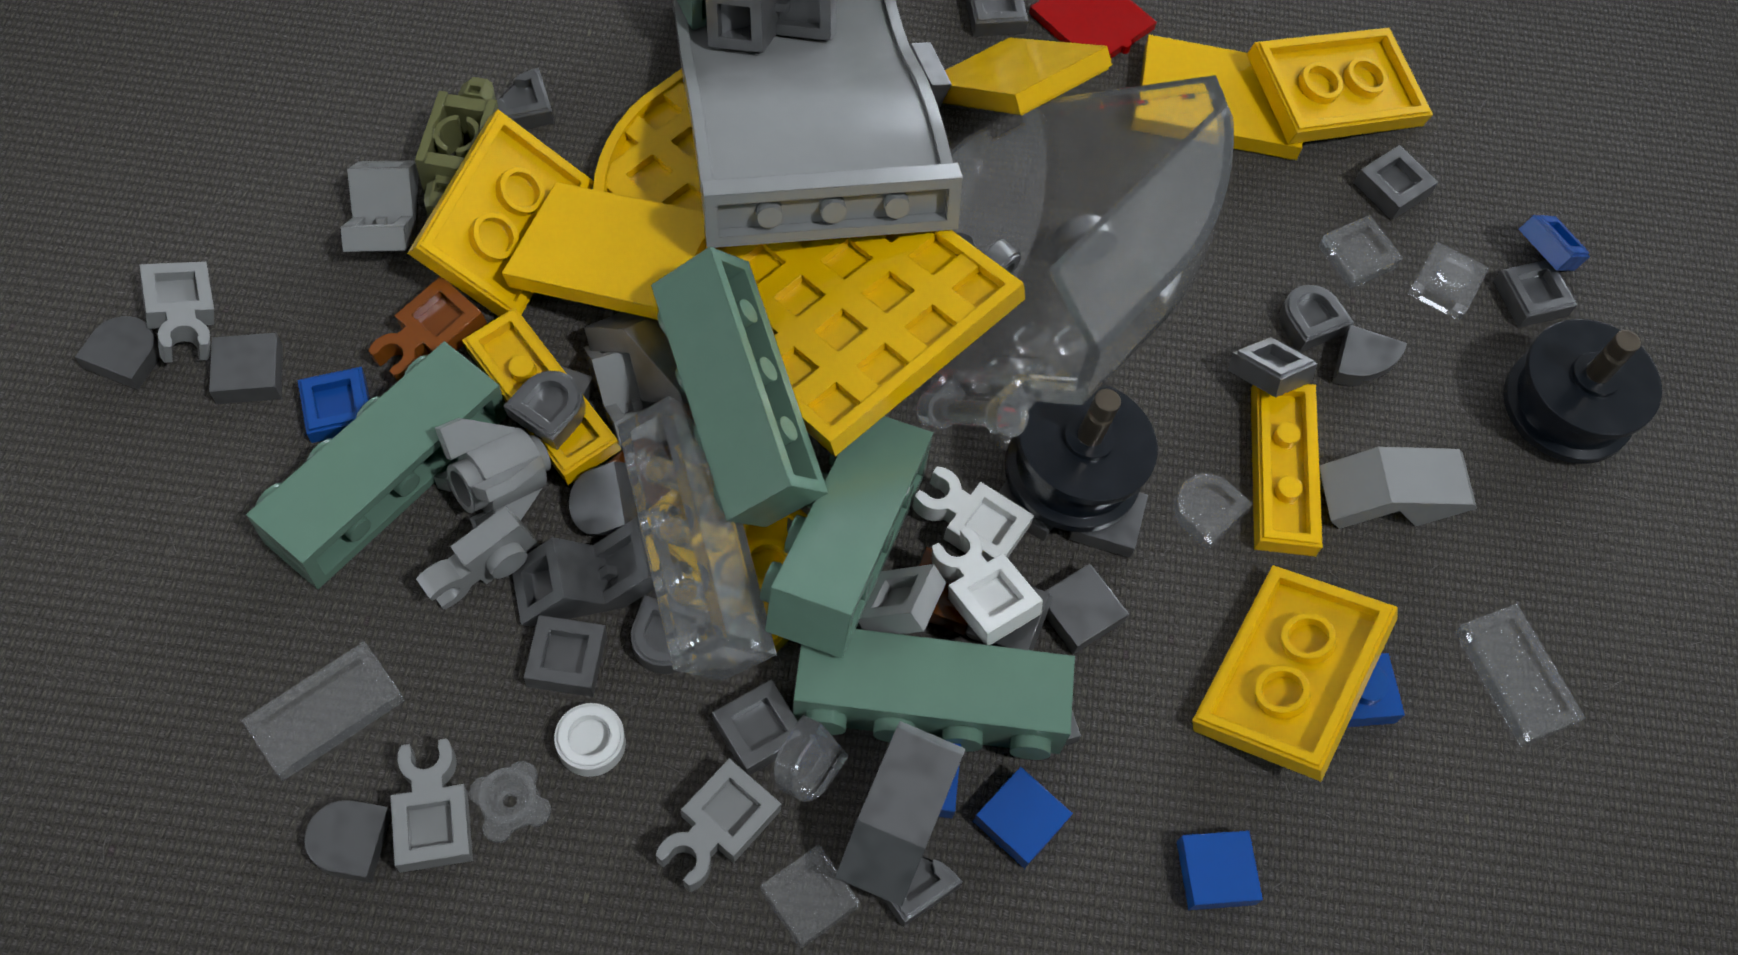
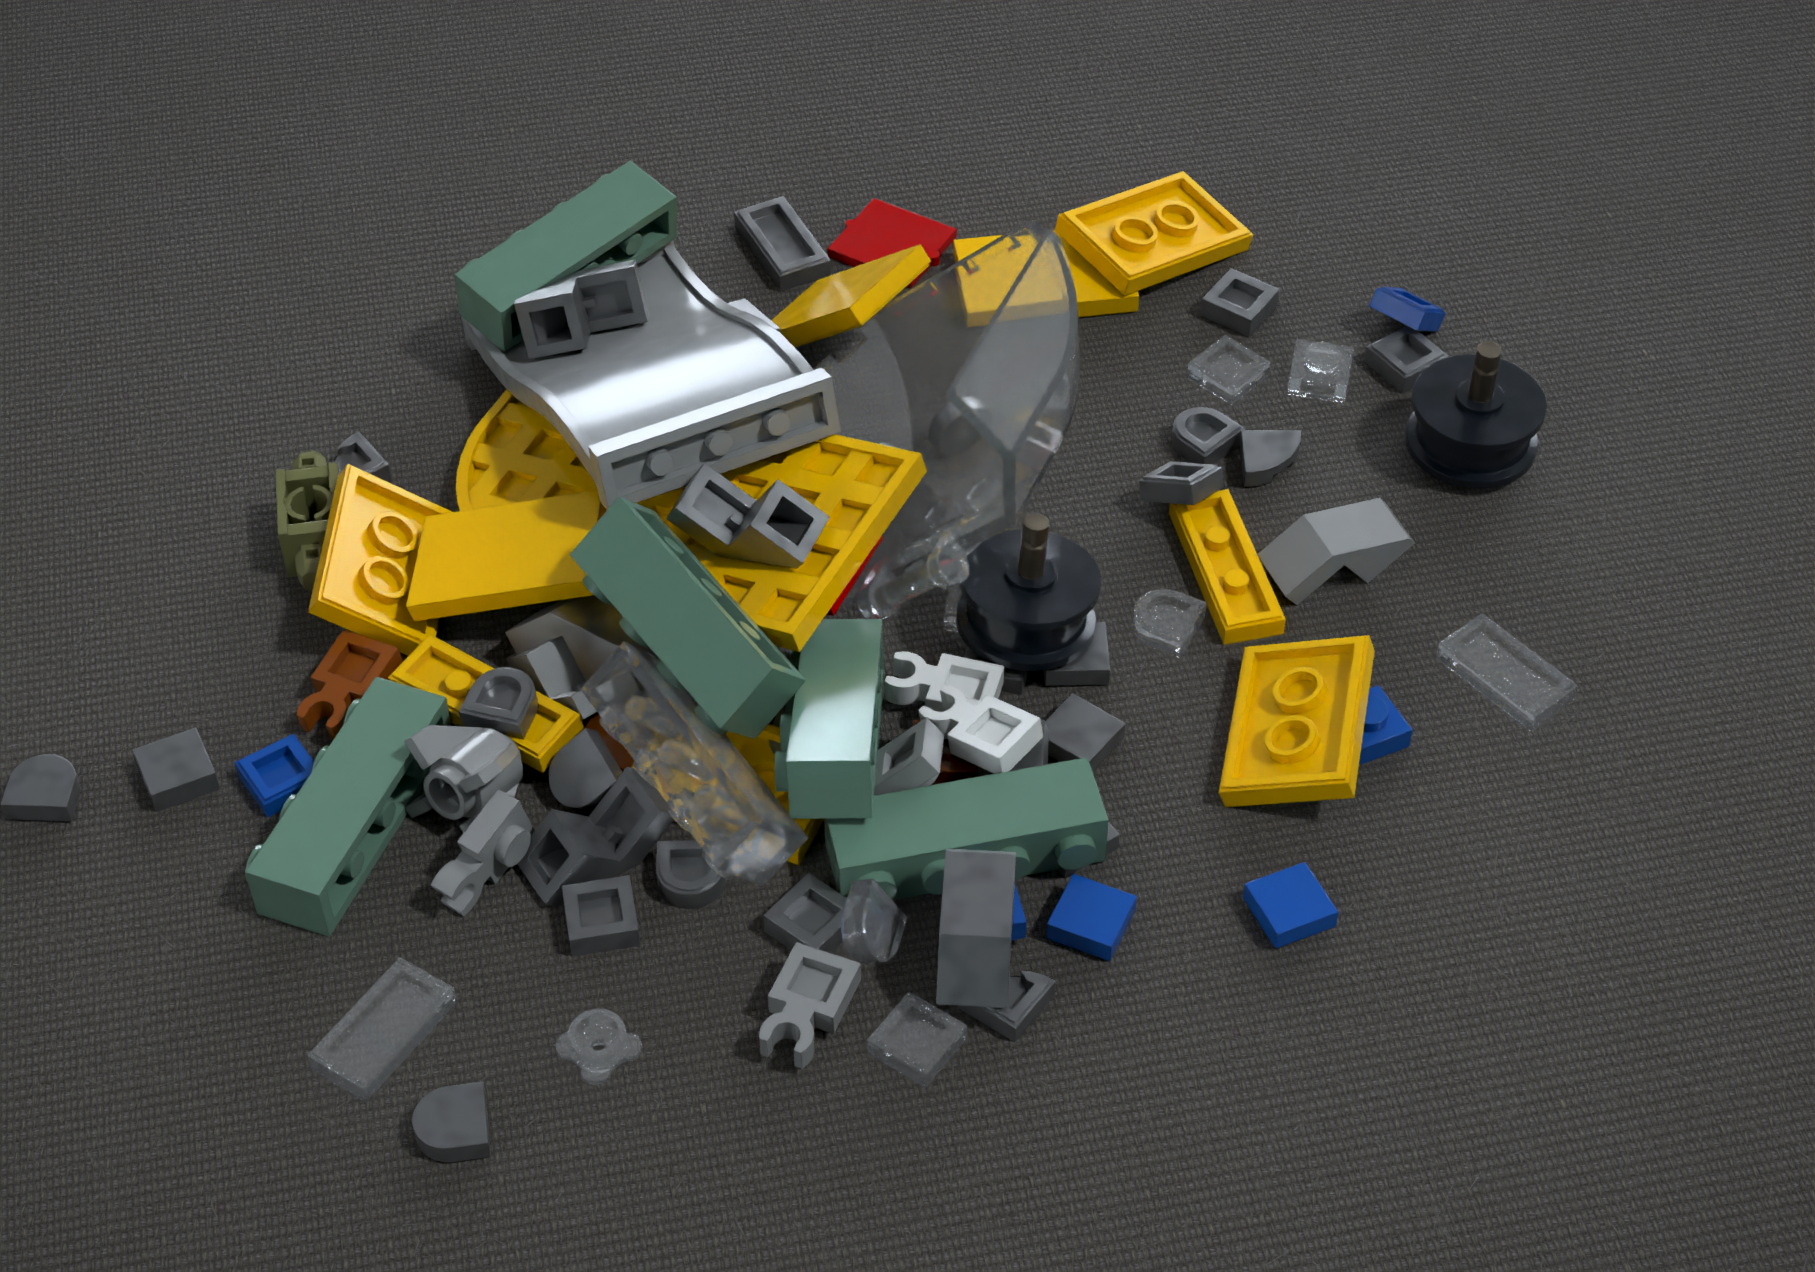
camera: 10 degrees left, 15 degrees down
(179, 304) = (89, 727): light grey plate -> none
(381, 206) = (253, 591): light grey slope -> none
(433, 819) = (527, 1077): light grey plate -> none
(590, 739) = (653, 976): white tile -> none
(843, 313) = (732, 524): none -> flat silver slope

